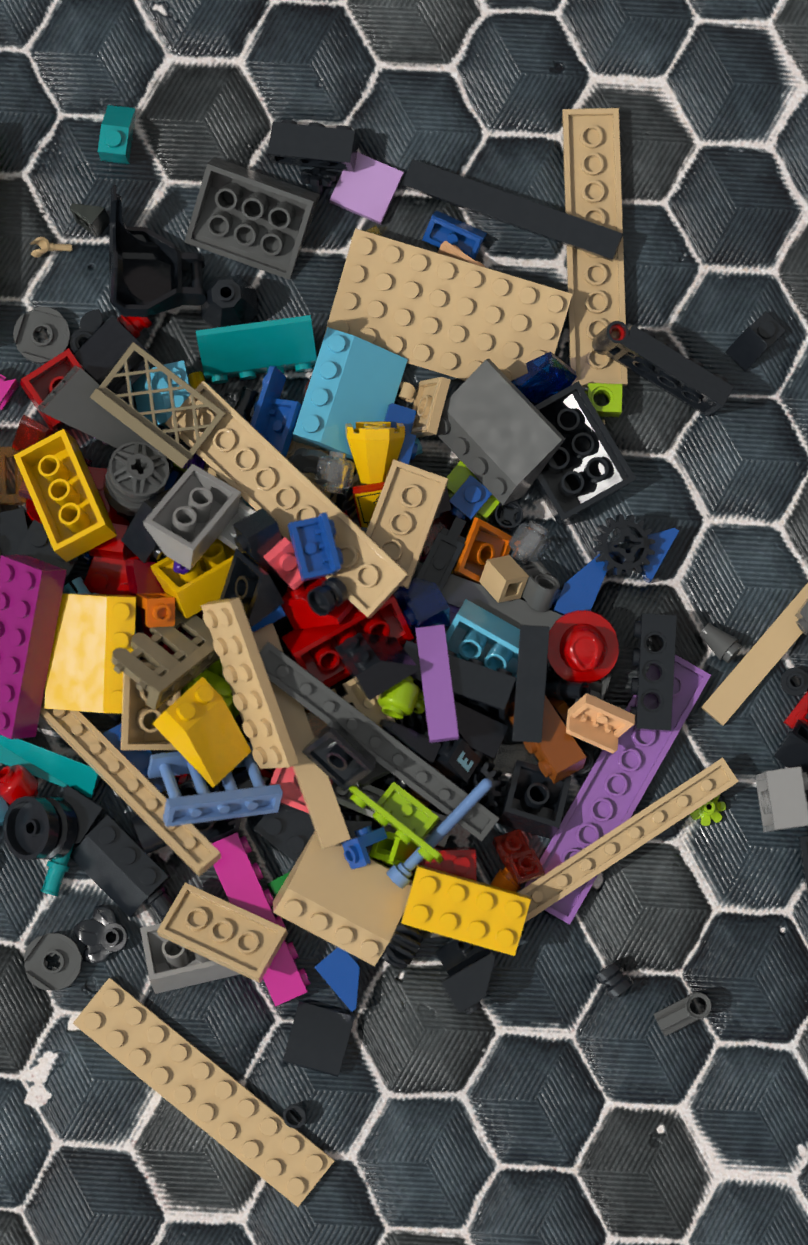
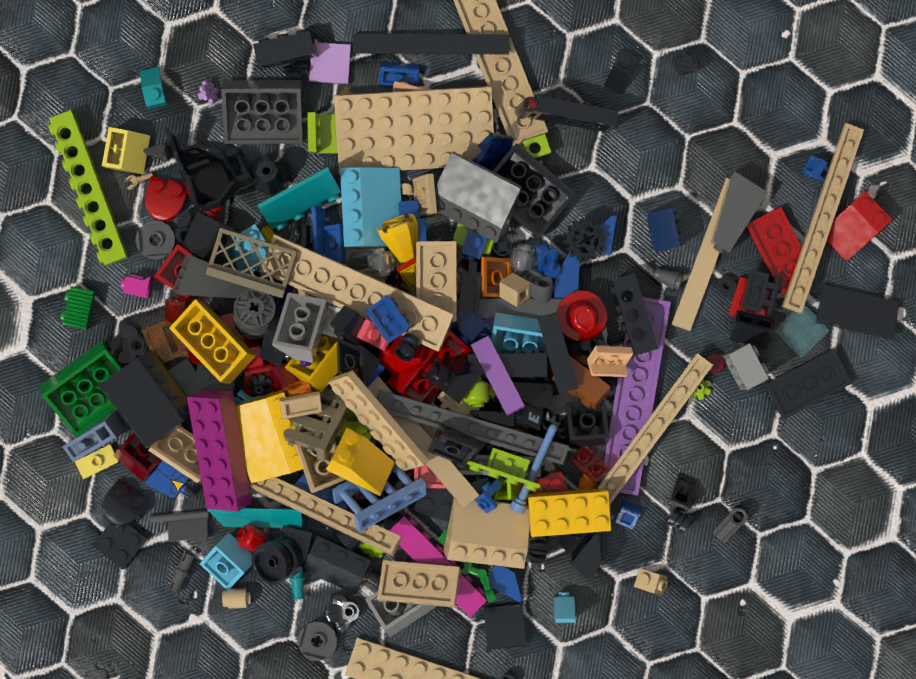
camera: 20 degrees left, 5 degrees up
(46, 200) = (125, 150): none -> light yellow slope
(75, 285) = (164, 199): none -> red slope
(108, 580) = (260, 385): none -> black plant
(152, 623) = (301, 405): none -> tan tile
(175, 863) = (373, 552): none -> lime plant
(188, 165) = (208, 92): none -> lavender plant
(314, 960) = (482, 574): none -> green piece
(319, 275) = (322, 133): none -> lime bracket
(410, 1042) = (564, 608): none -> medium azure slope
(544, 1051) = (651, 581): none -> tan bracket
(546, 947) = (628, 514): none -> blue slope
(563, 556) = (547, 261): none -> blue hips
(632, 942) = (682, 491): none -> black slope
(736, 574) = (664, 230): none -> dark blue slope
(745, 785) = (717, 361): none -> dark red tile

